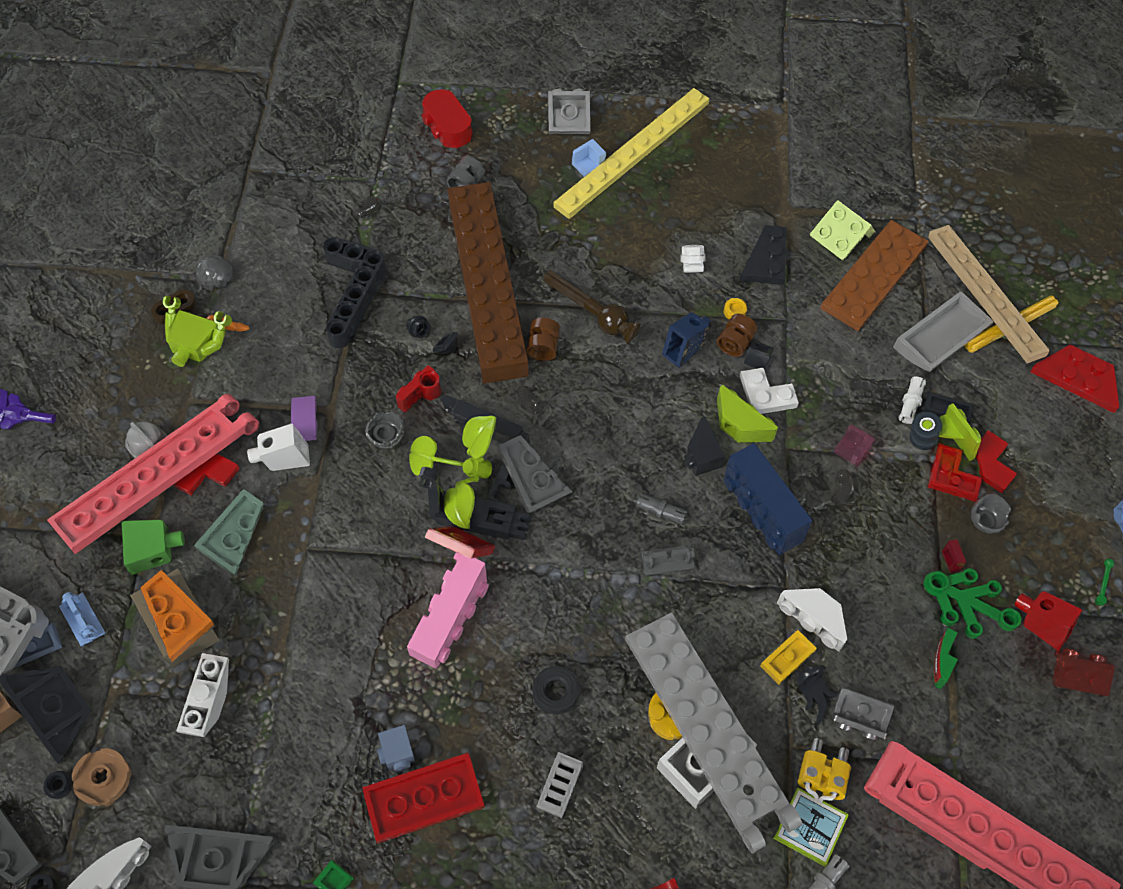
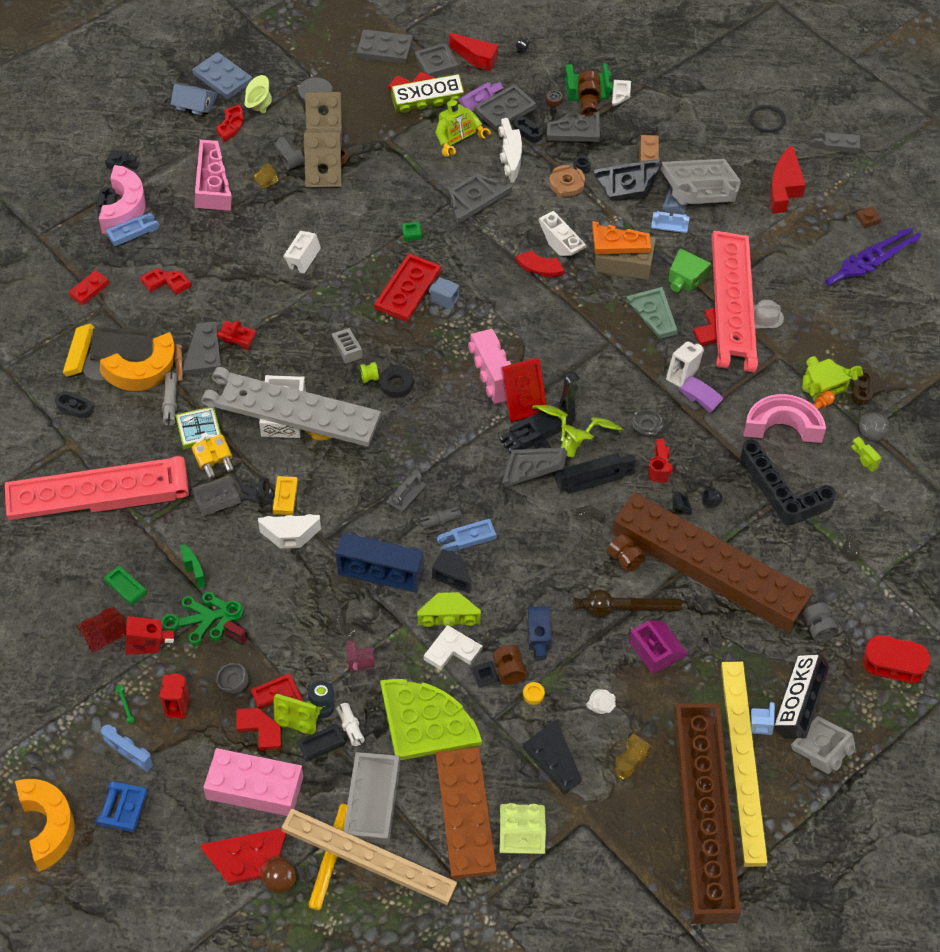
camera: 135 degrees right, 5 degrees down
(257, 252) = (868, 456): none -> lime plate
(263, 695) = (539, 265): none -> red tile
(273, 343) = (788, 411): none -> bright pink brick
(545, 144) = (801, 696): none -> brick
(574, 721) = (369, 372): none -> lime wheel
(604, 256) = (656, 645): none -> magenta slope
(656, 469) = (468, 535): none -> medium blue hinge
(700, 137) = (706, 814): none -> reddish brown brick
(713, 208) = (635, 754): none -> clear yellow leg
(845, 355) = (425, 720): none -> lime plate
(1026, 702) = (125, 585): none -> green tile
(1037, 416) = (253, 782): none -> bright pink brick
(1062, 532) = (174, 696): none -> red brick
(1073, 325) = (277, 875): none -> reddish brown helmet

